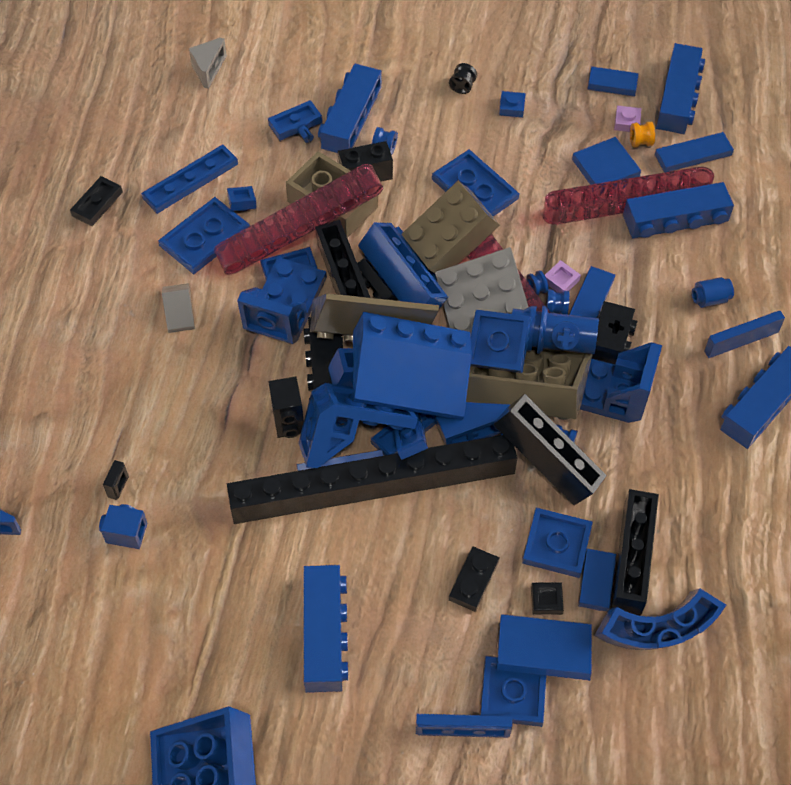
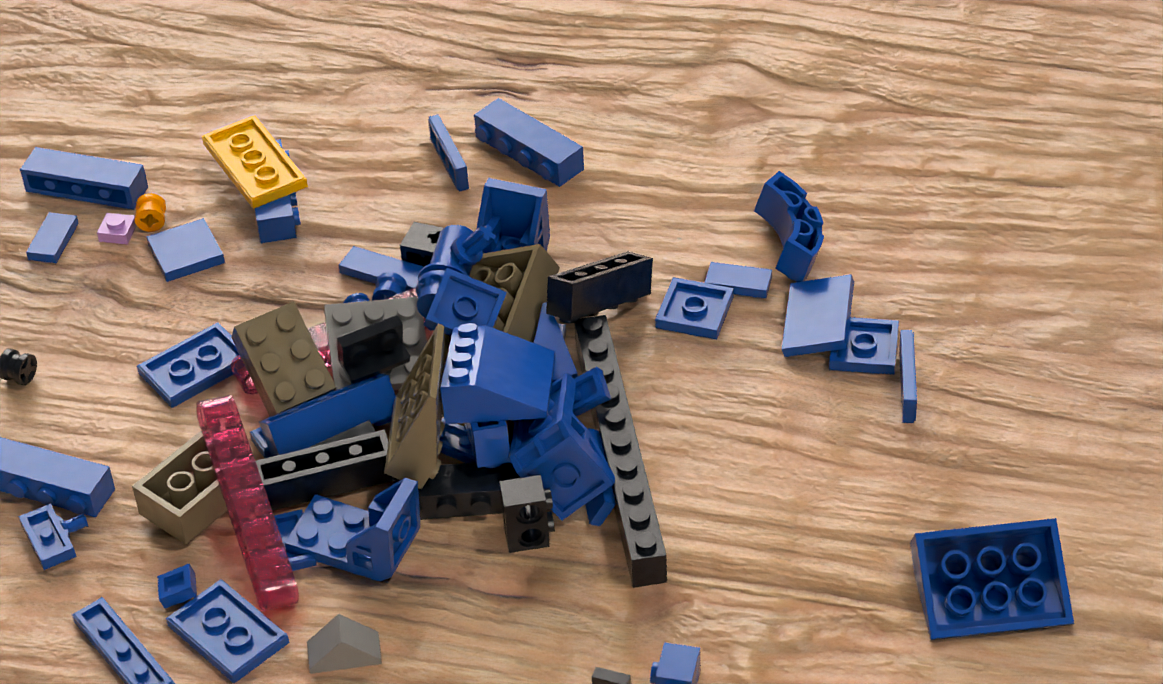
camera: 85 degrees left, 15 degrees down
(323, 629) = (804, 486): blue brick -> none
(375, 154) = (144, 447): black brick -> none
(381, 135) = (108, 442): blue wheel -> none
(455, 285) = (372, 349): none -> black bracket
(474, 579) = (738, 372): black plate -> none
(512, 104) = (67, 328): blue plate -> none
(547, 598) = (759, 318): black tile -> none
(562, 277) = (351, 284): lavender plate -> none
(610, 197) = (243, 247): clear pink beam -> none
(635, 552) = (713, 239): black brick -> none
(694, 152) = (181, 178): blue tile -> none
(697, 188) = (254, 161): none -> yellow tile
(712, 292) = (389, 172): blue brick -> none

